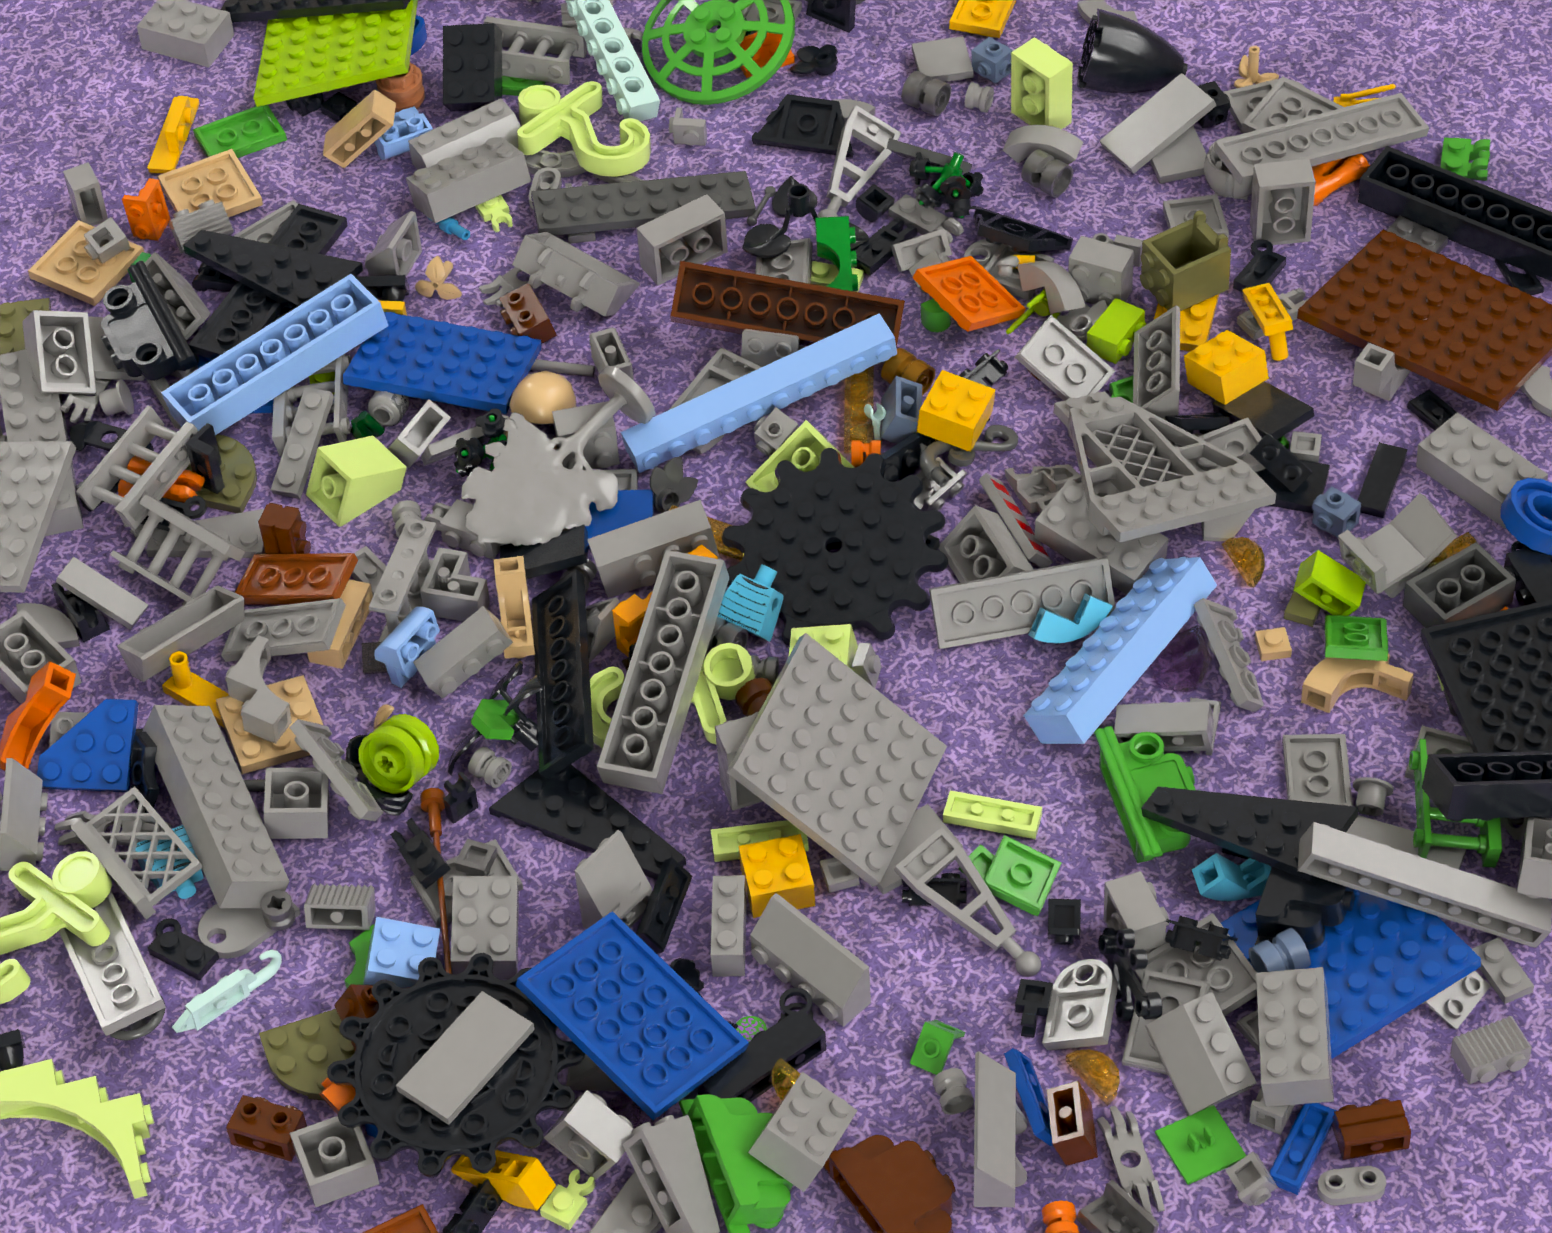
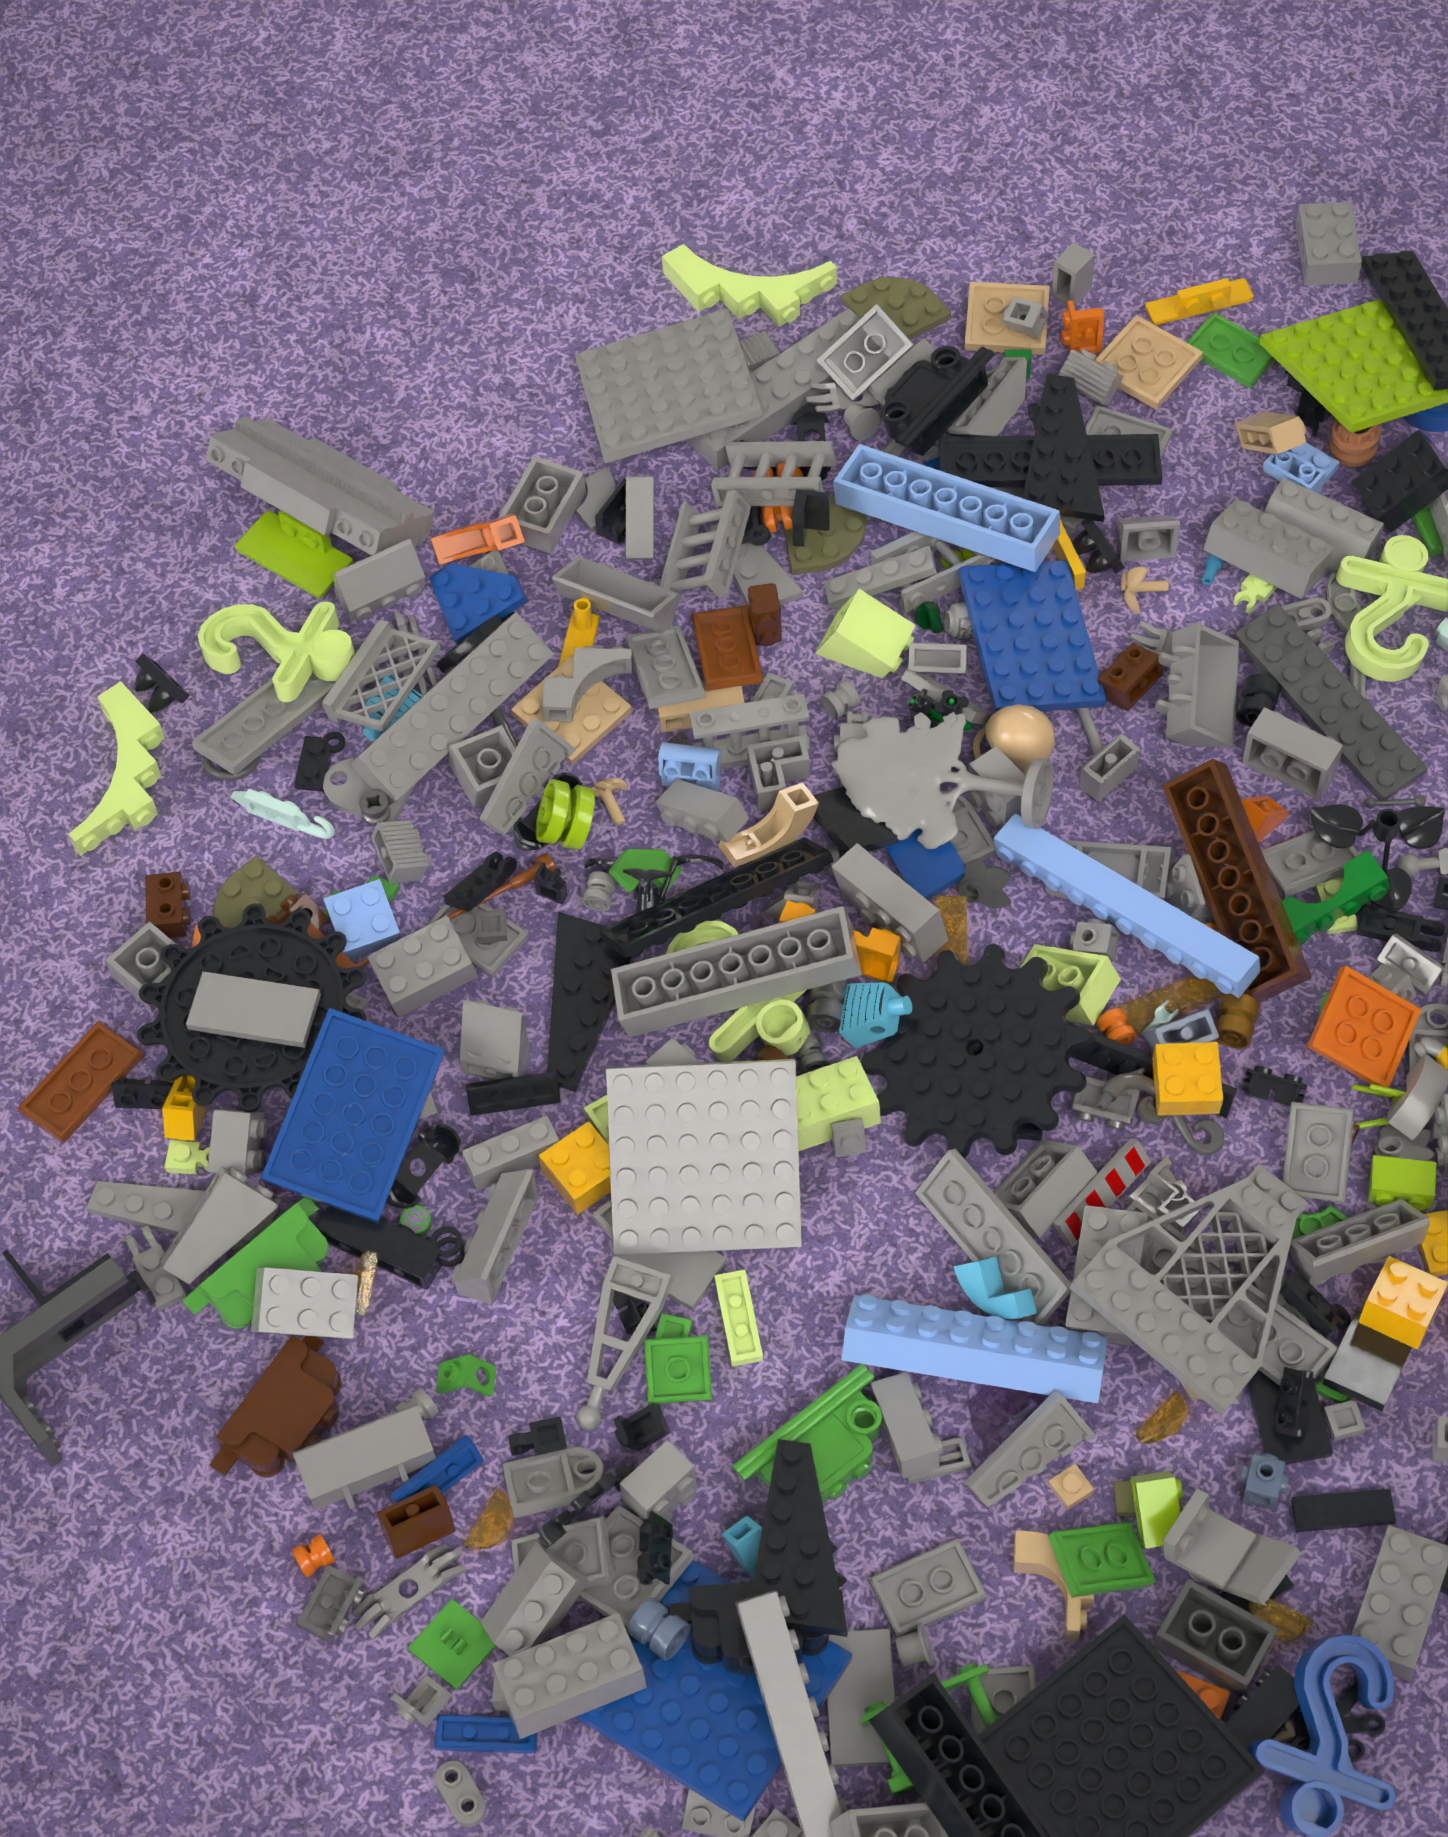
camera: 65 degrees right, 10 degrees up
(611, 245) = (1257, 693): none -> black wheel
(1371, 1129) = (523, 1787): reddish brown brick -> none

